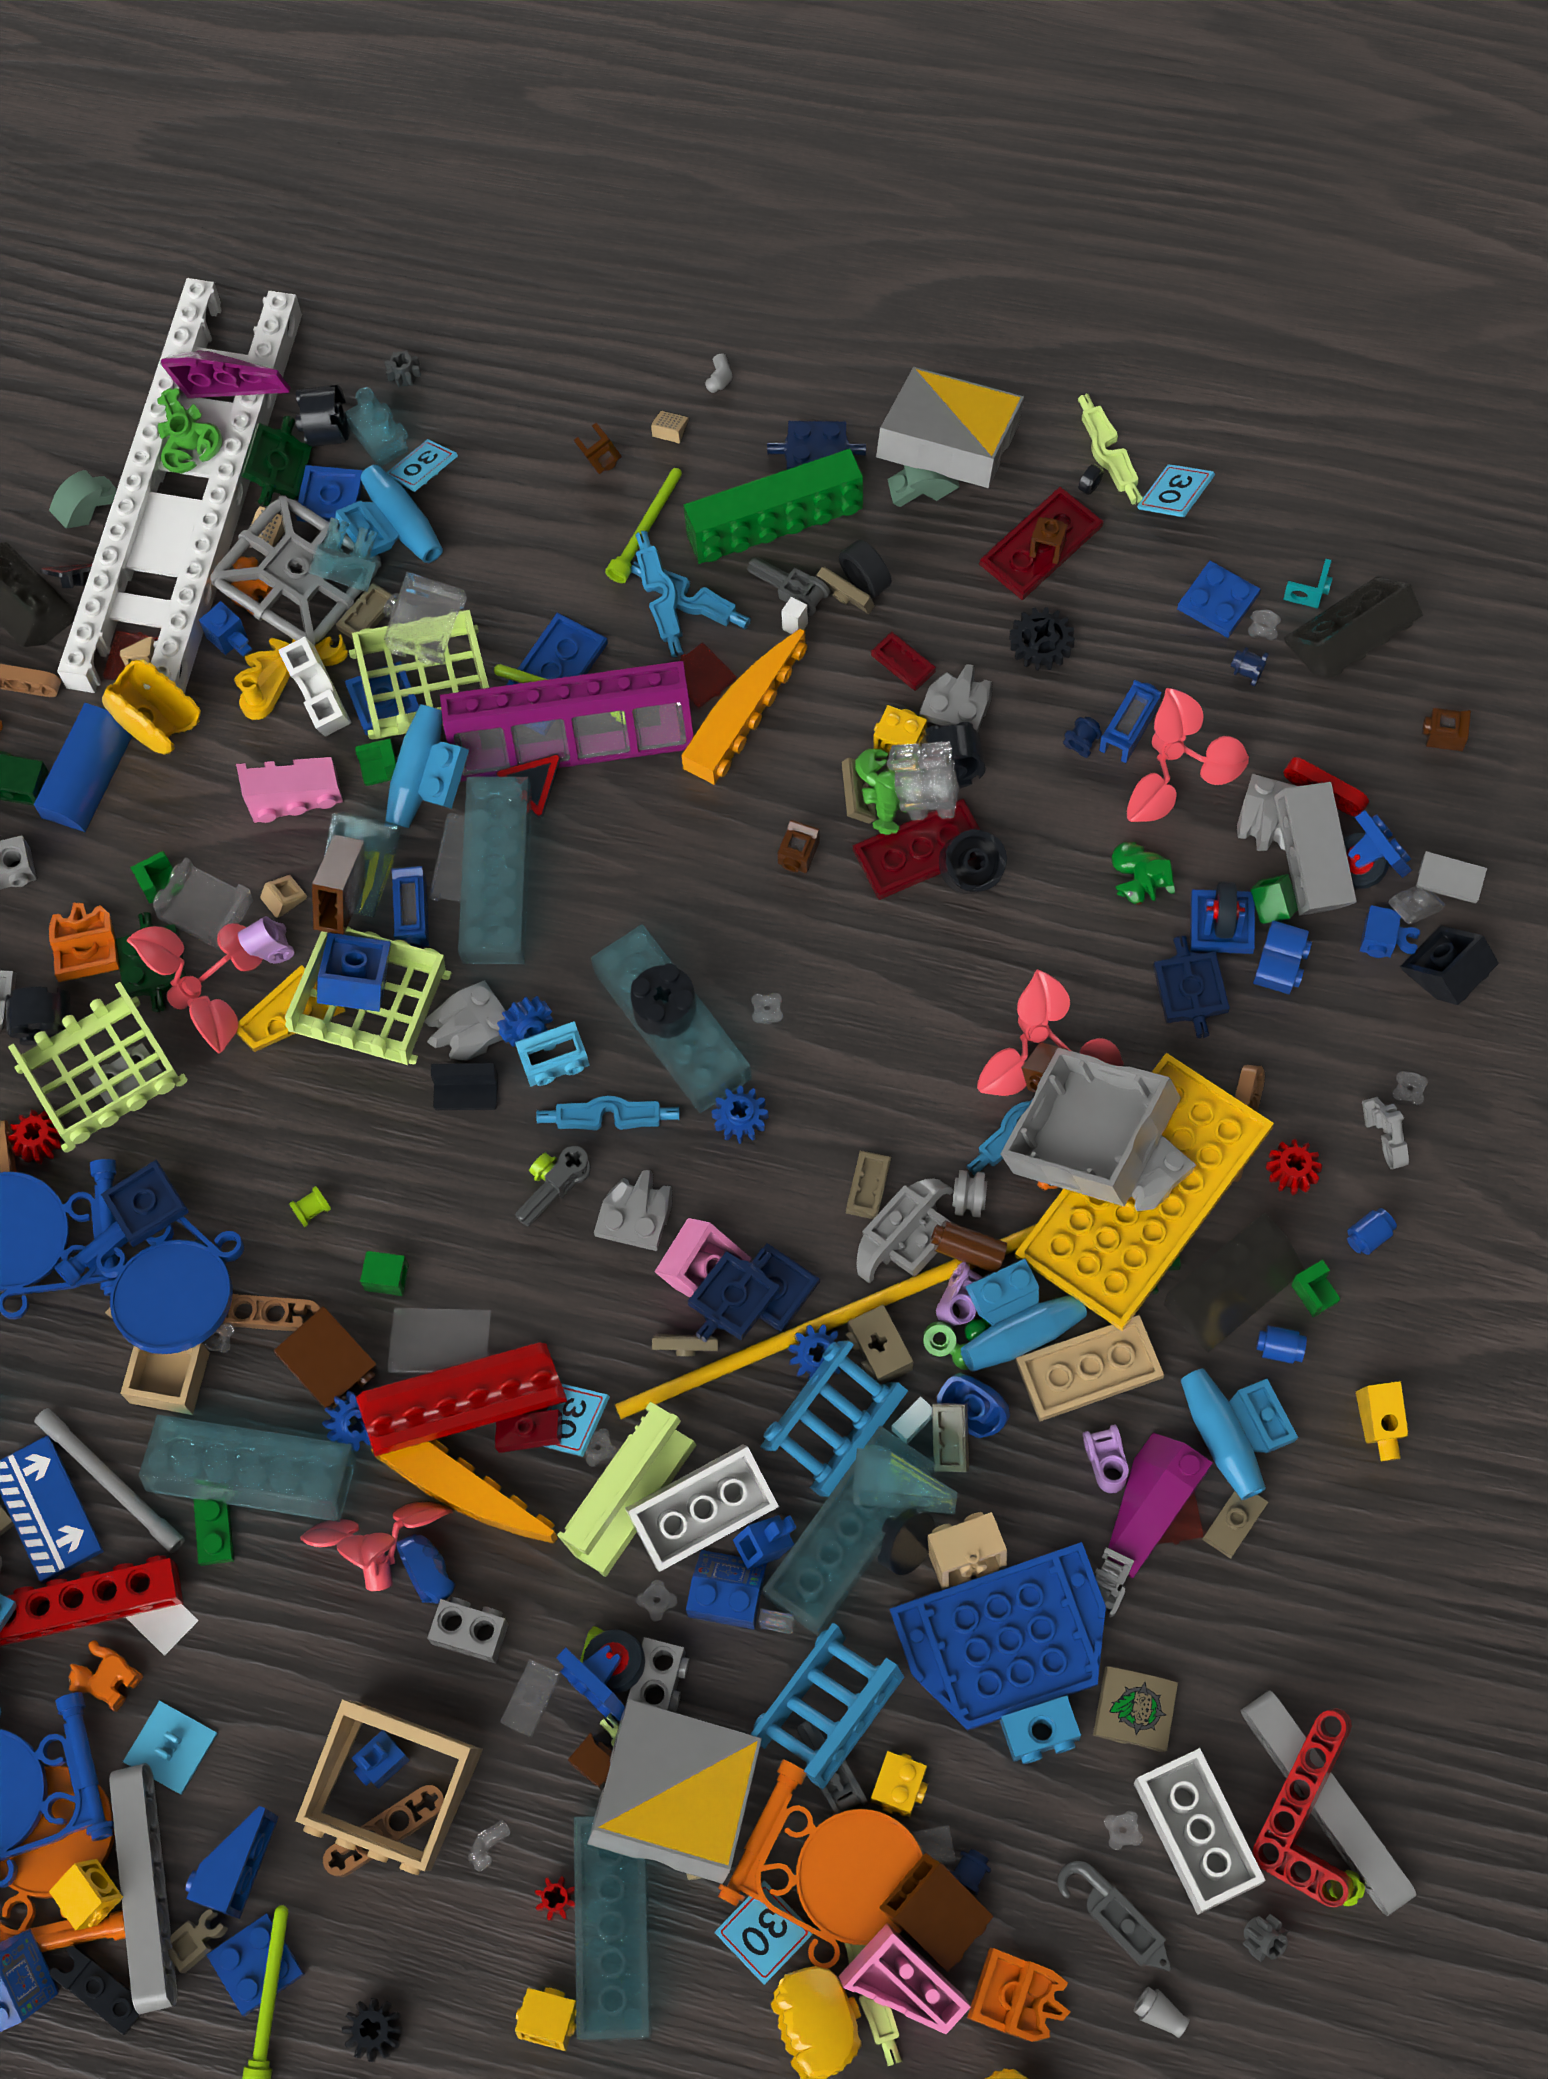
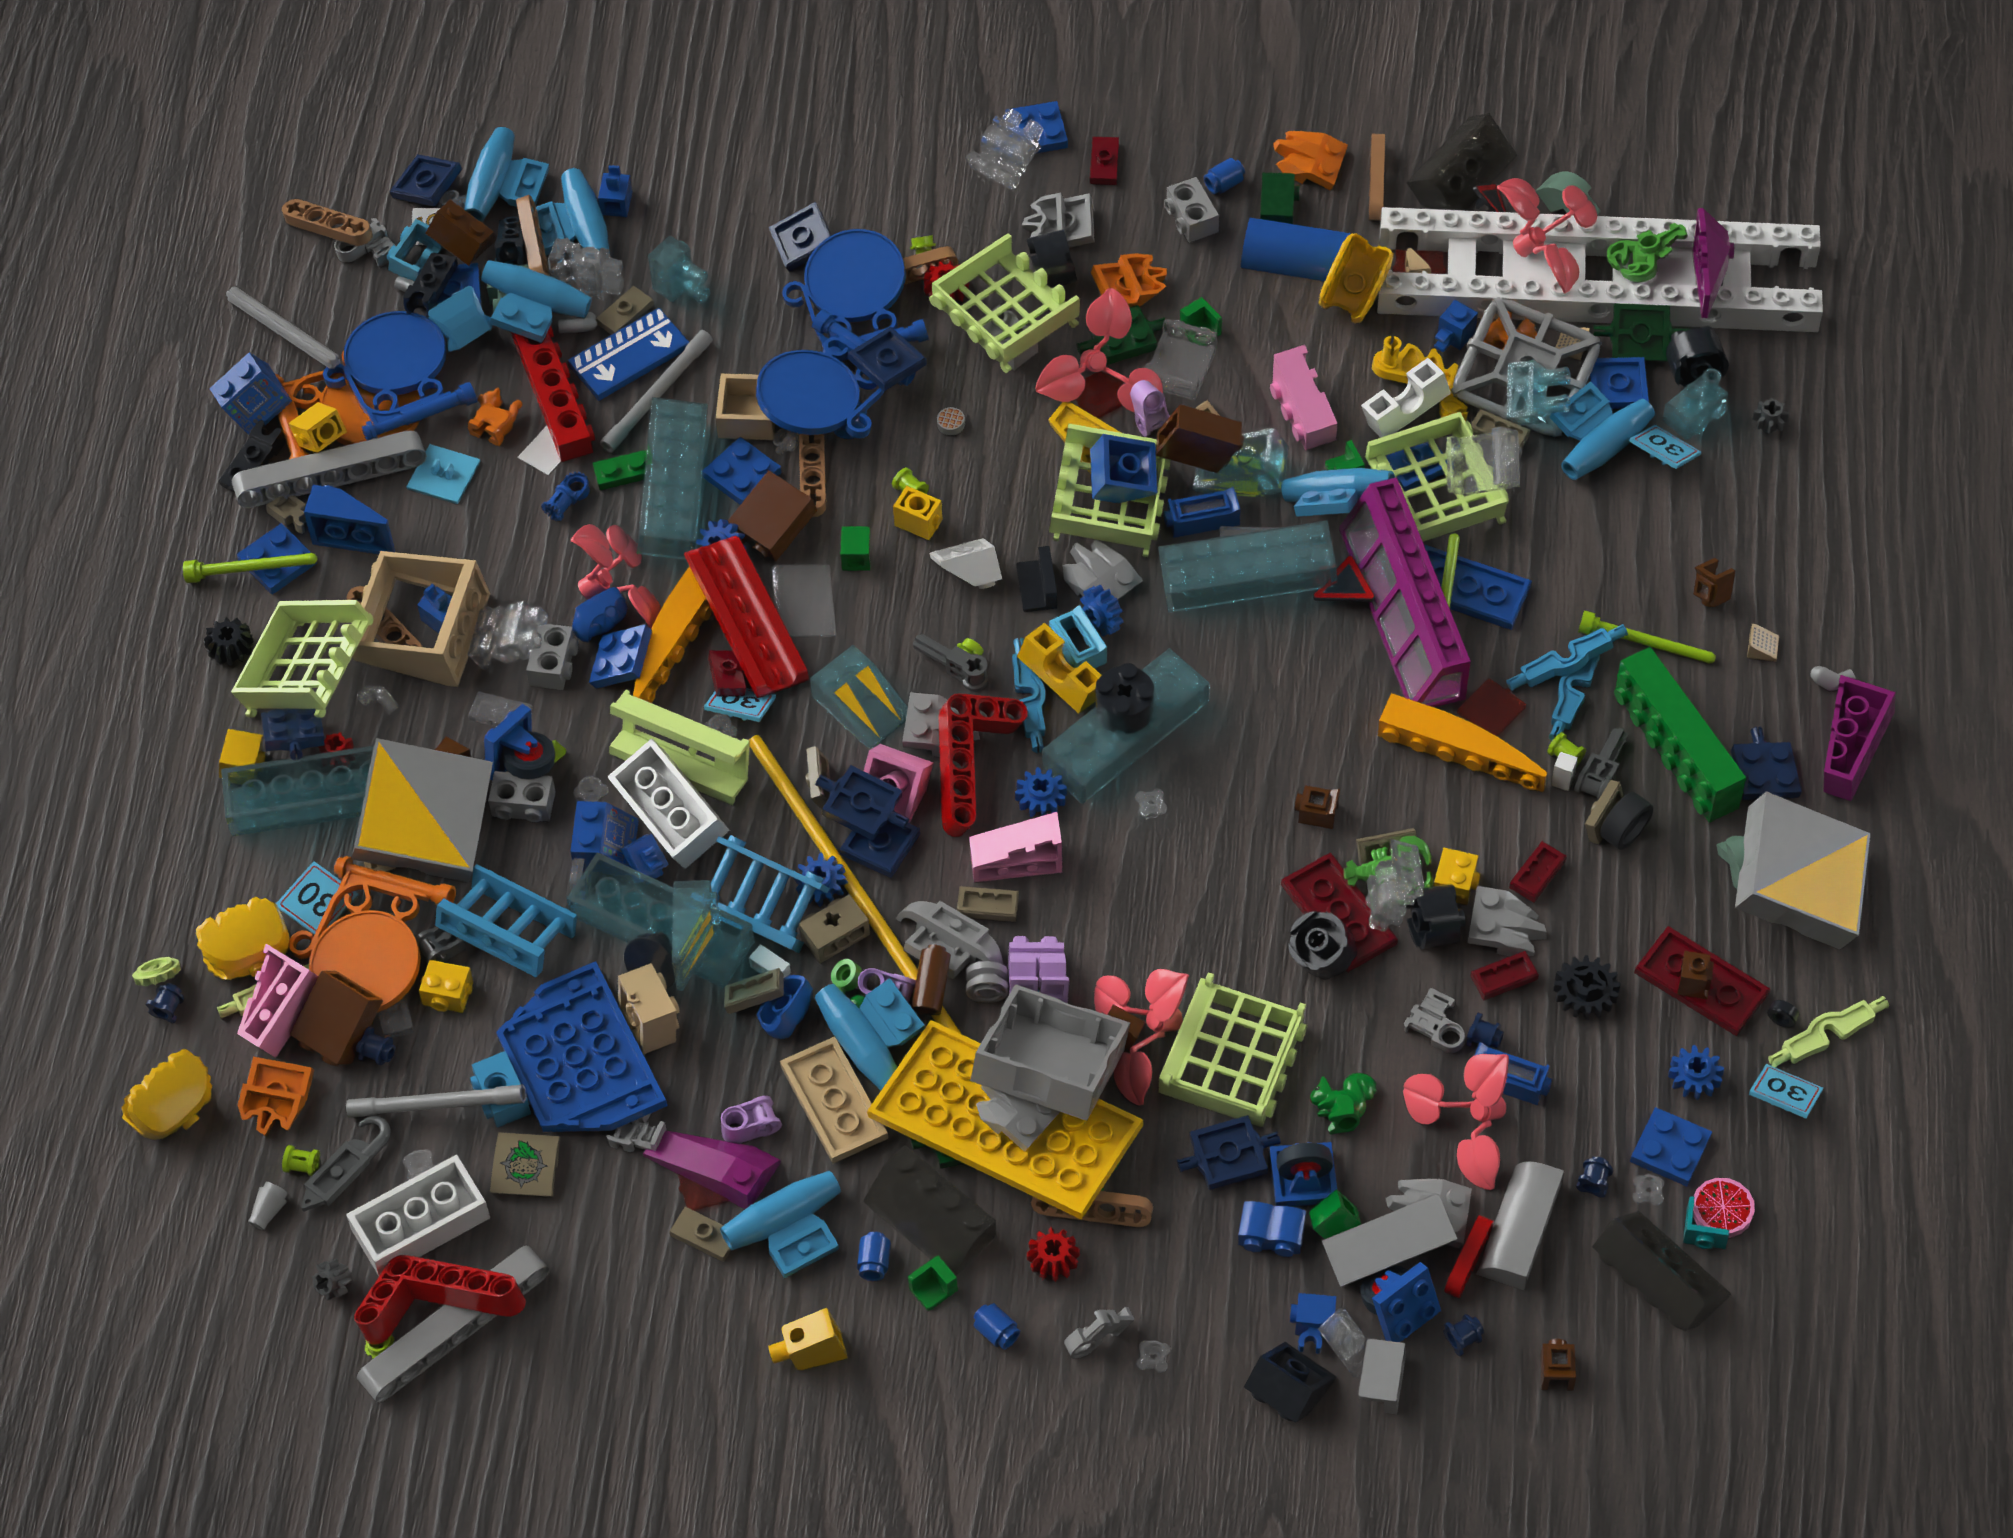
camera: 80 degrees right, 10 degrees down
(142, 529) = (1531, 240): none -> coral plant
(227, 1155) = (950, 421): none -> light grey tile
(230, 987) = (1100, 394): none -> clear red piece
(241, 1595) = (565, 496): none -> blue connector
(246, 1391) = (739, 470): none -> blue plate
(355, 1198) = (917, 512): none -> yellow head
(407, 1978) = (253, 684): none -> yellowish green window
(426, 1153) = (971, 561): none -> white slope
(441, 1664) = (506, 633): none -> clear hips
(487, 1548) = (620, 656): none -> blue plate
(526, 1949) = (292, 730): none -> dark blue plate
(586, 1289) = (859, 697): none -> clear light blue slope
(614, 1060) = (1044, 656): none -> yellow arch
(685, 1188) = (963, 752): none -> red beam
(767, 613) = (1562, 744): none -> lime bush
(794, 362) = (1856, 732): none -> magenta wedge
(811, 1143) = (1018, 850): none -> bright pink wedge
(958, 1140) = (1039, 961): none -> lavender hips
(1017, 709) = (1504, 975): none -> dark red plate
(1046, 1877) = (372, 1106): none -> light grey piece
(1063, 783) = (1431, 1015): none -> light grey piece
(1082, 1012) = (1190, 1030): none -> yellowish green window
(1107, 1968) = (300, 1160): none -> lime bush
(1146, 562) = (1683, 1073): none -> blue gear
(1285, 562) = (1723, 1205): none -> tile
(1290, 732) = (1521, 1224): none -> light grey brick
(1408, 803) = (1463, 1333): none -> dark blue brick

